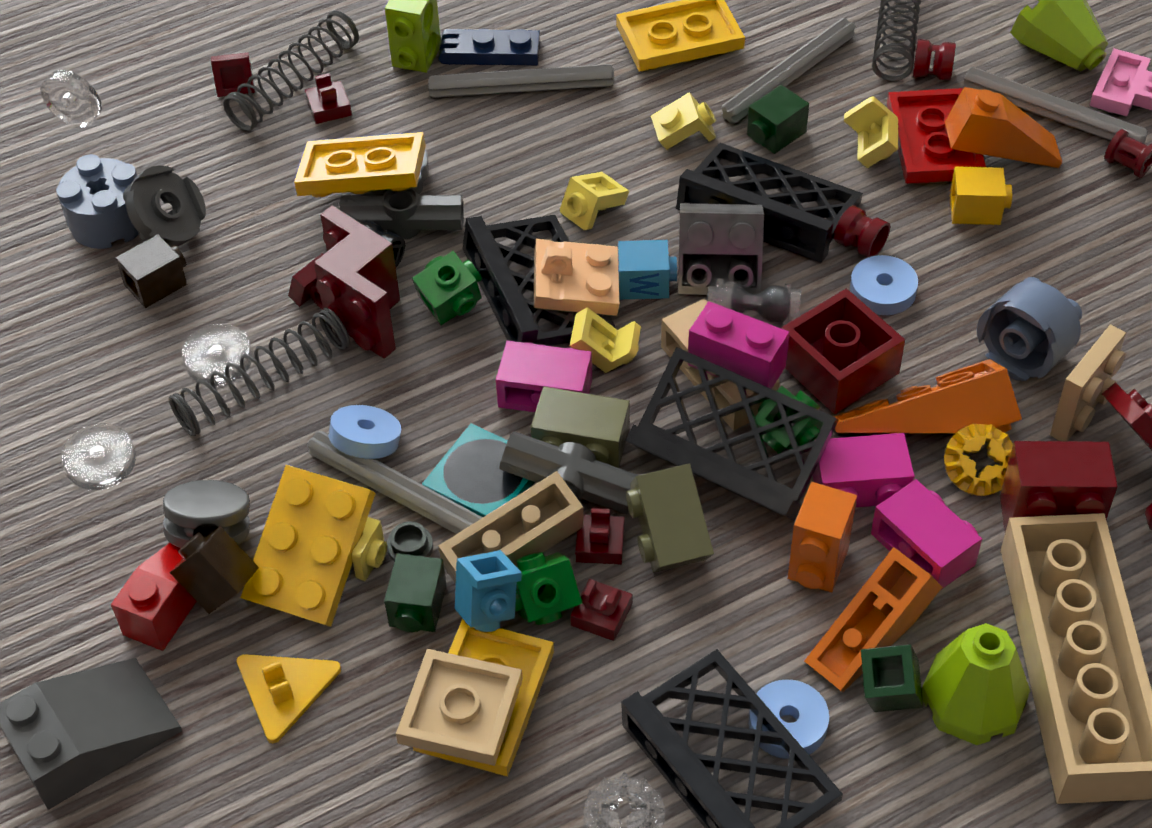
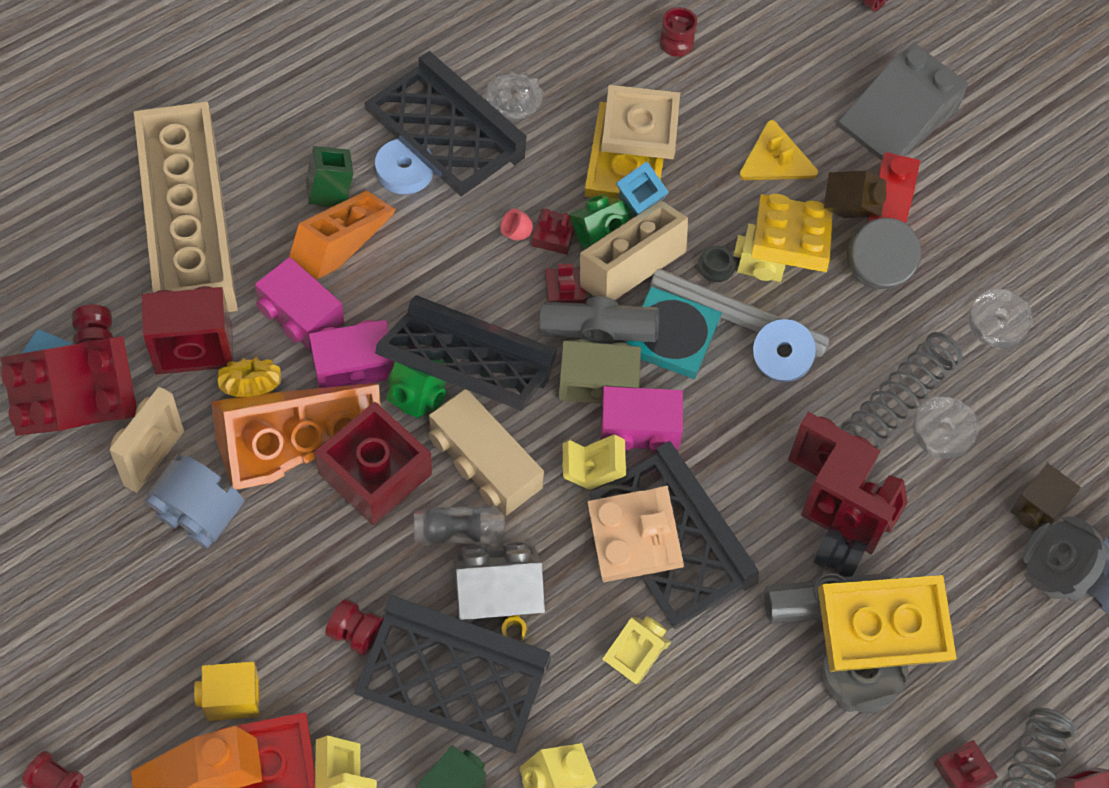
camera: 165 degrees right, 10 degrees up
(415, 593) = (703, 216): dark green brick -> none
(448, 287) = (755, 499): green brick -> none
(645, 269) = (570, 553): dark azure brick -> none
(649, 610) = (516, 225): none -> coral hinge
(669, 518) = (510, 280): olive brick -> none
(739, 344) = (468, 414): dark pink brick -> none
(821, 537) = (385, 271): orange brick -> none
(884, 284) = (328, 558): light blue piece -> none
(977, 686) = (265, 189): lime cone -> none

